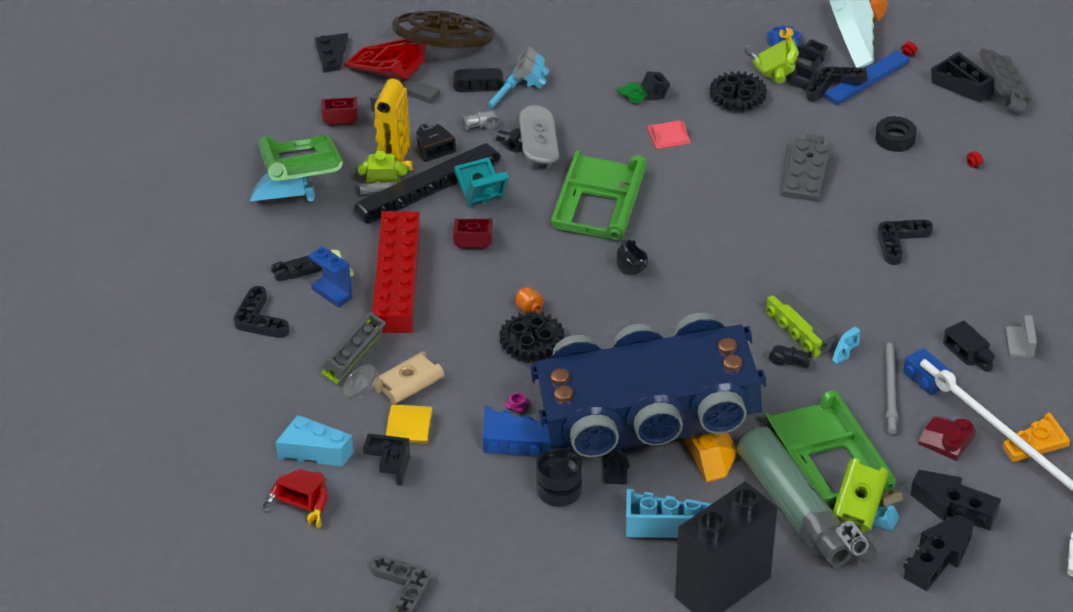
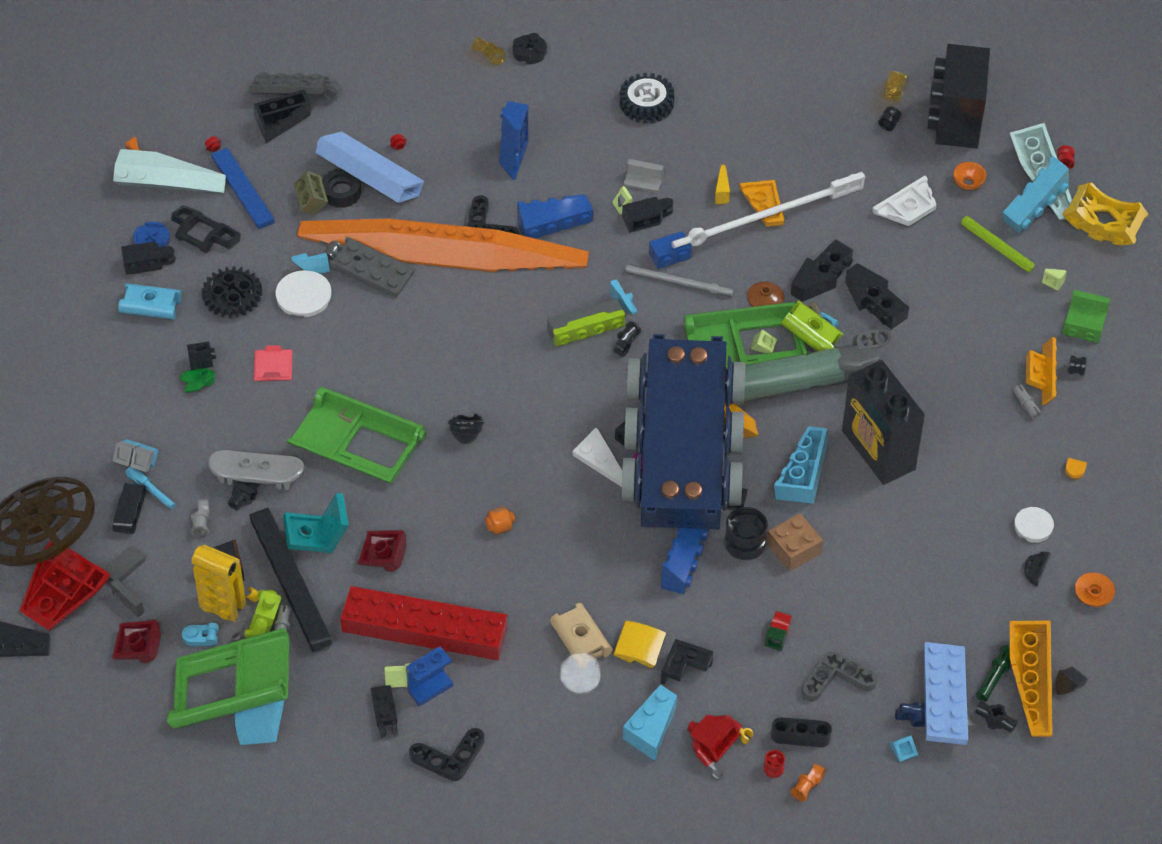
camera: 80 degrees left, 10 degrees up
(263, 574) = (807, 782): none -> orange connector
(280, 544) = (774, 763): none -> red wheel
(323, 561) = (791, 733): none -> black beam
(353, 348) = (532, 672): dark grey piece -> none
(358, 145) = (193, 635): none -> medium azure plate
(449, 527) = (778, 630): none -> leg
(517, 402) = (631, 550): dark pink plate -> none
(531, 336) = (544, 533): black gear -> none
(564, 523) = (794, 542): none -> medium nougat brick
(707, 48) = (150, 301): none -> medium azure piece
(753, 33) = (146, 257): none -> black hinge
(757, 135) = (303, 293): none -> white tile
(777, 60) = (204, 246): lime torso -> none
(792, 130) = (316, 263): none -> medium azure slope
(830, 75) = (238, 211): black beam -> none
(834, 467) = (763, 342): none -> yellowish green slope
(858, 219) = (447, 244): none -> orange wedge
(875, 112) = (310, 193): none -> olive brick
(904, 461) = (764, 294): none -> dark orange dish
(925, 141) = (369, 166): none -> light blue brick
(928, 275) = (552, 216): none -> blue wedge
(947, 436) = (746, 257): dark red slope -> none
(983, 326) = (622, 198): none -> yellowish green slope
(1010, 224) = (513, 137): none -> blue wedge
(1039, 399) = (722, 192): none -> yellow slope

